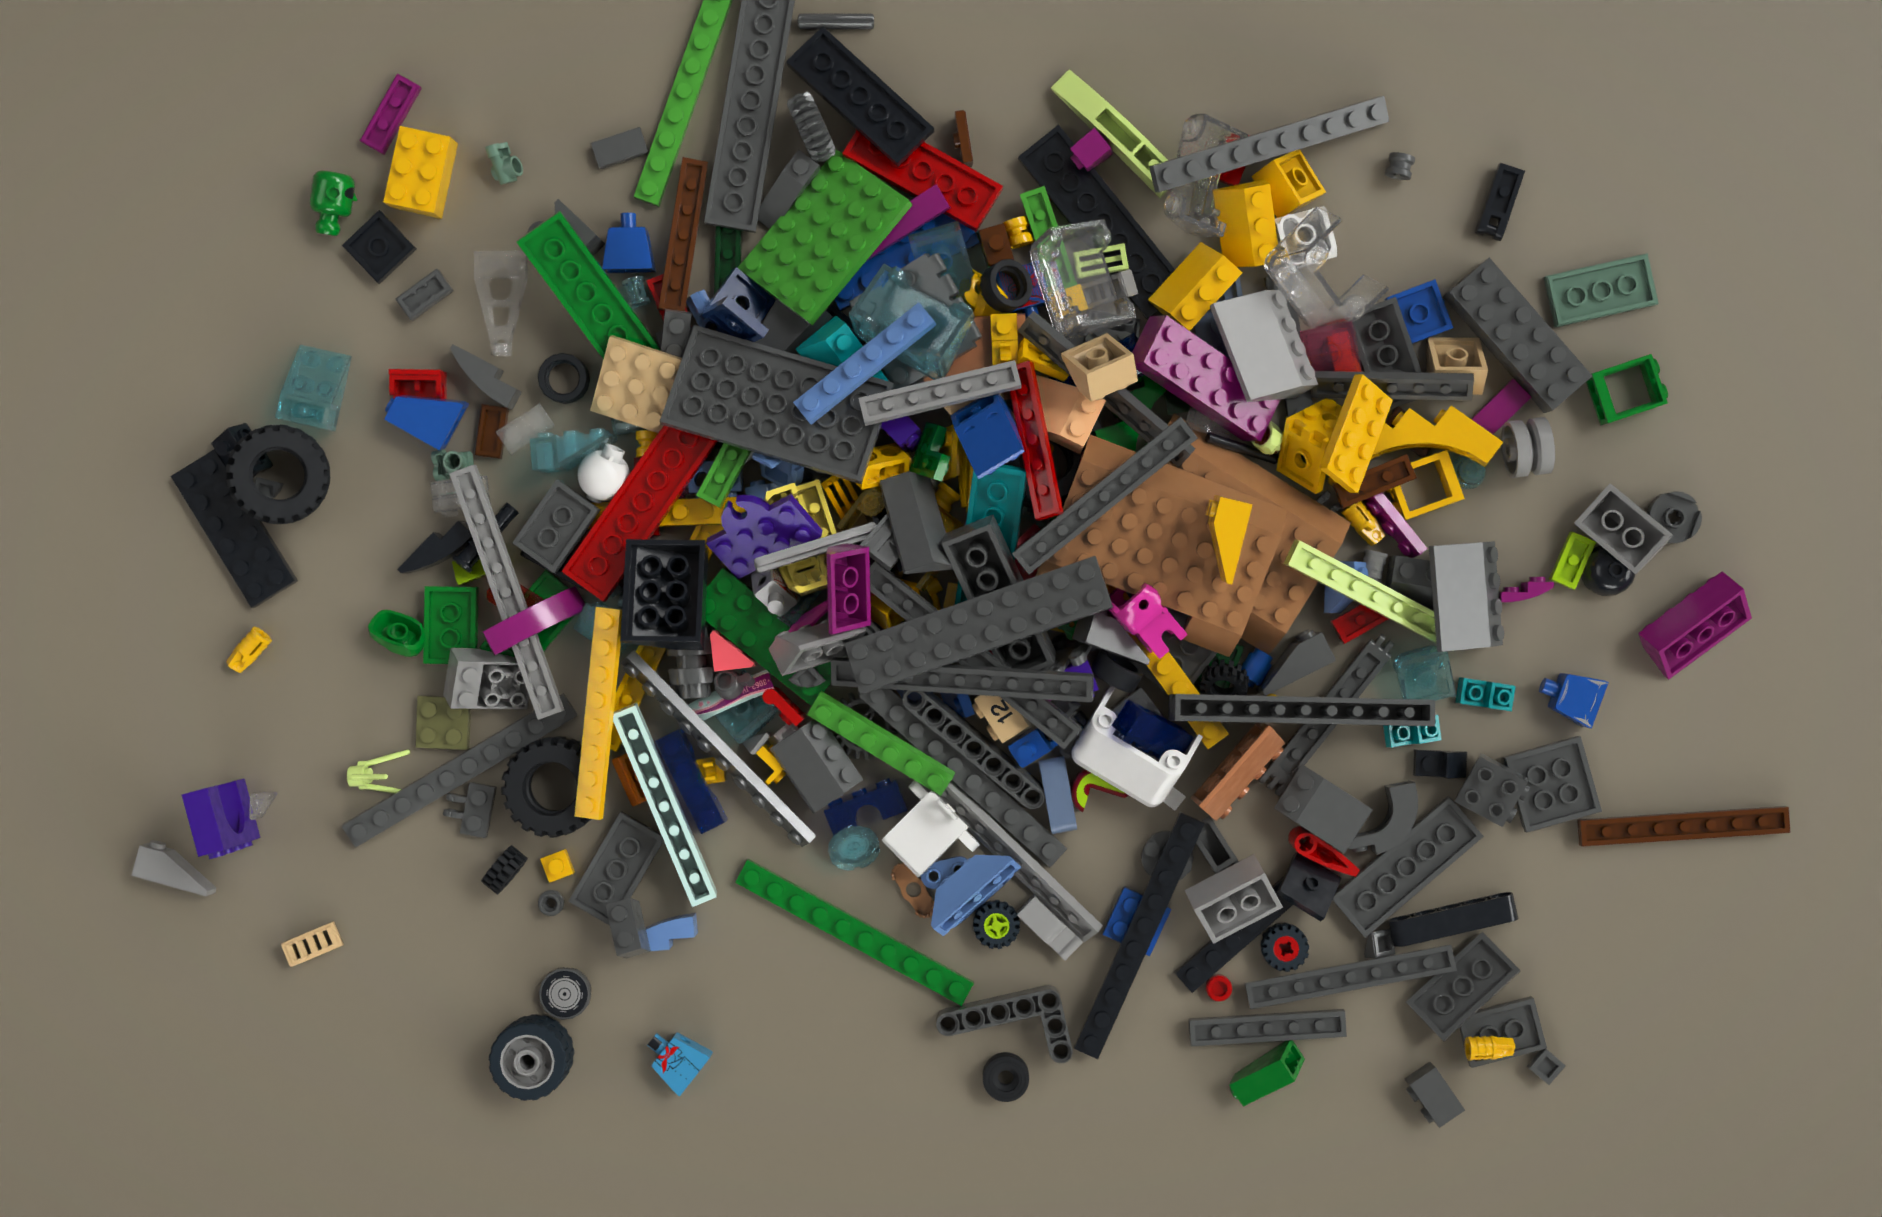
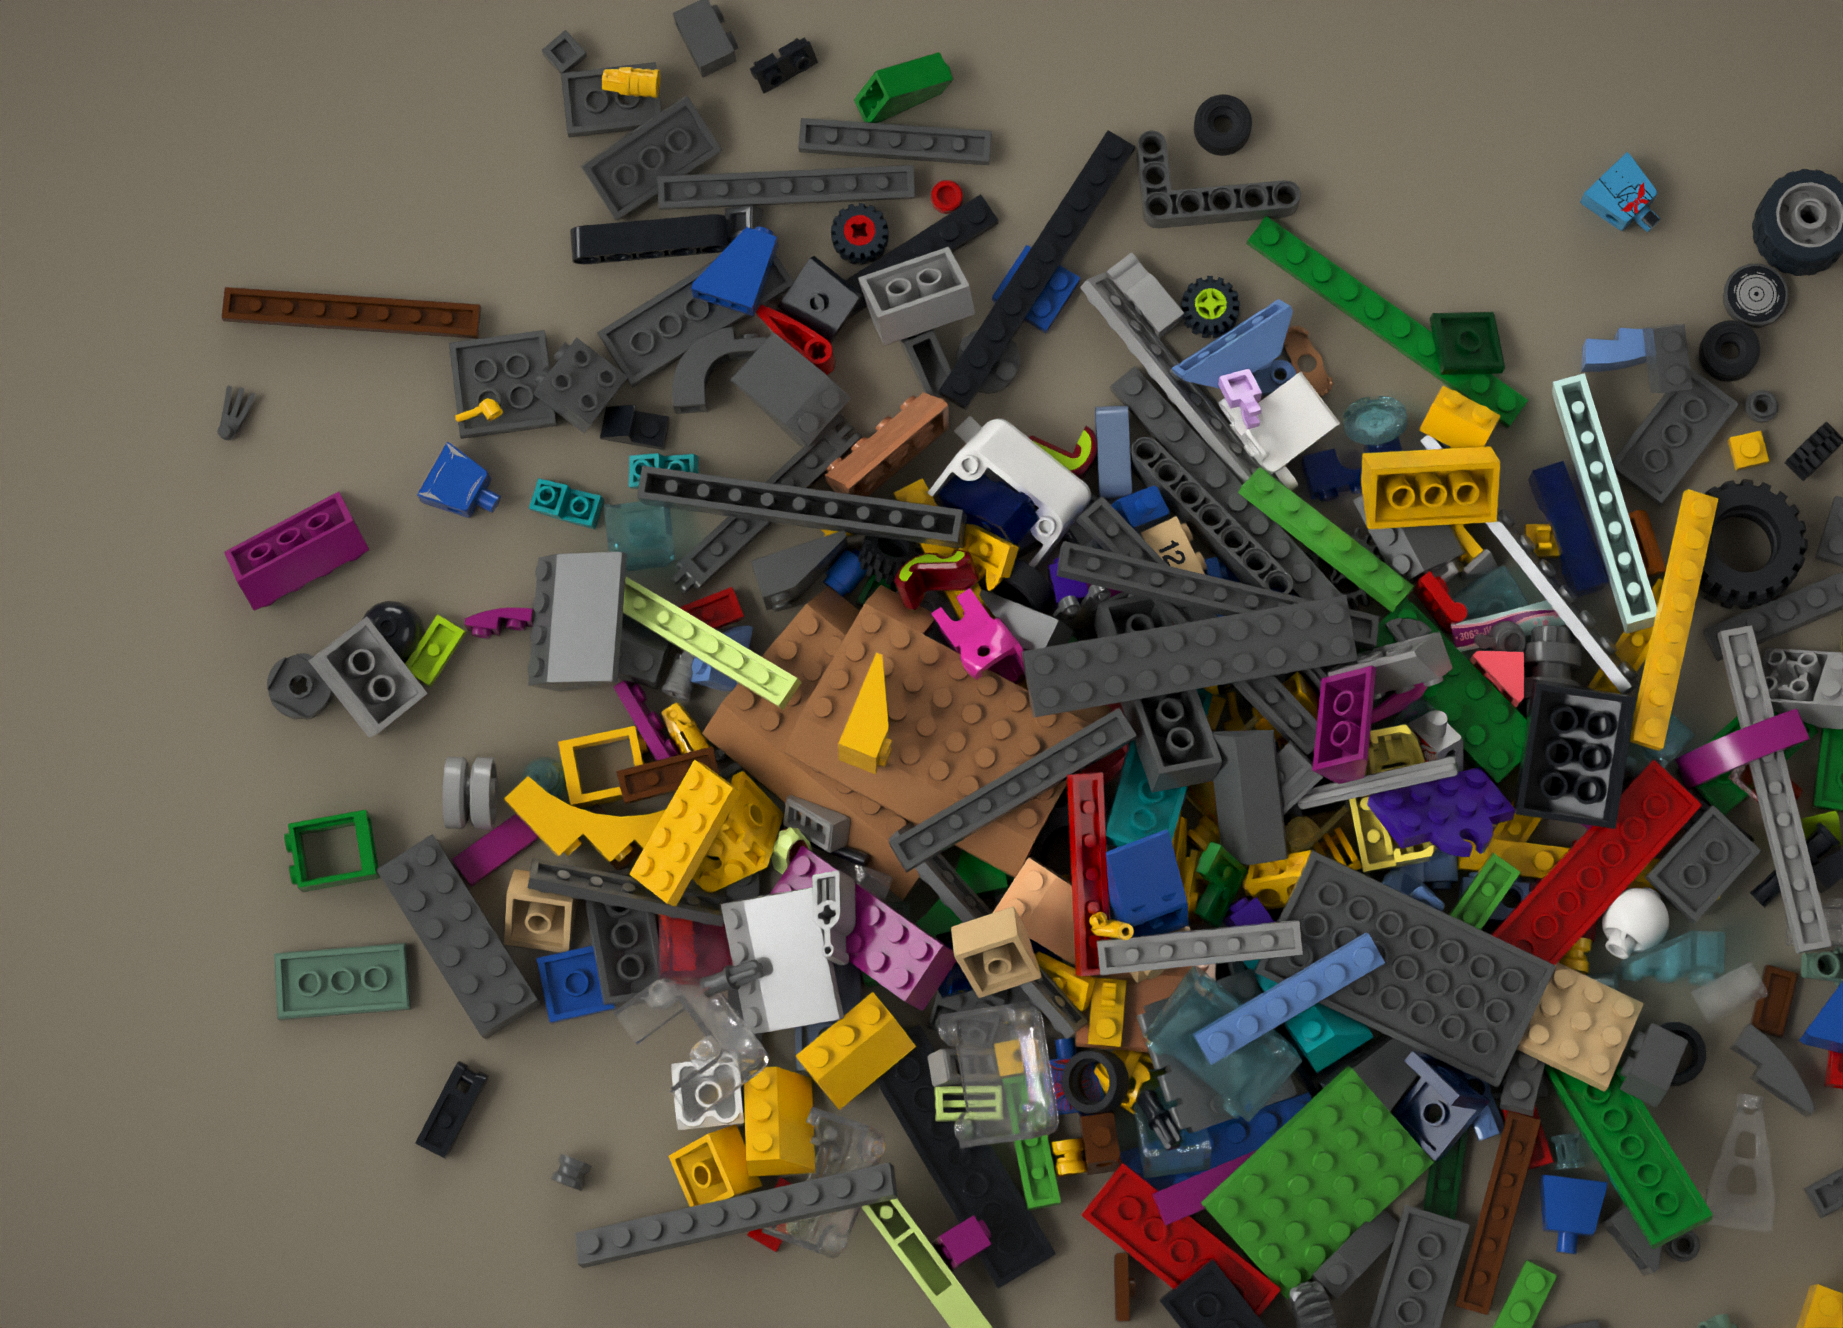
camera: 170 degrees left, 10 degrees down
(573, 957) = (1729, 332): none -> black tyre
(576, 360) = (1653, 1064): none -> dark grey brick
(786, 853) = (1459, 420): none -> yellow slope
(788, 921) = (1467, 343): none -> dark green tile
(803, 795) = (1430, 487): none -> yellow slope
(952, 260) = (1159, 1120): none -> black axle
(962, 853) = (1243, 391): none -> lavender plate
(1012, 398) = (1110, 928): none -> yellow arm
(1149, 690) = (990, 554): none -> yellow plate
(1188, 670) = (934, 573): none -> dark red animal
(1230, 381) = (834, 912): none -> light grey piece
(1251, 461) = (835, 825): none -> light grey slope
(1302, 325) = (731, 977): none -> dark grey axle
(1357, 1086) = (795, 58): none -> black hinge
(1377, 900) = (739, 272): none -> blue slope
(1560, 760) = (488, 407): none -> yellow hand
(1763, 723) = (230, 423): none -> dark grey piece

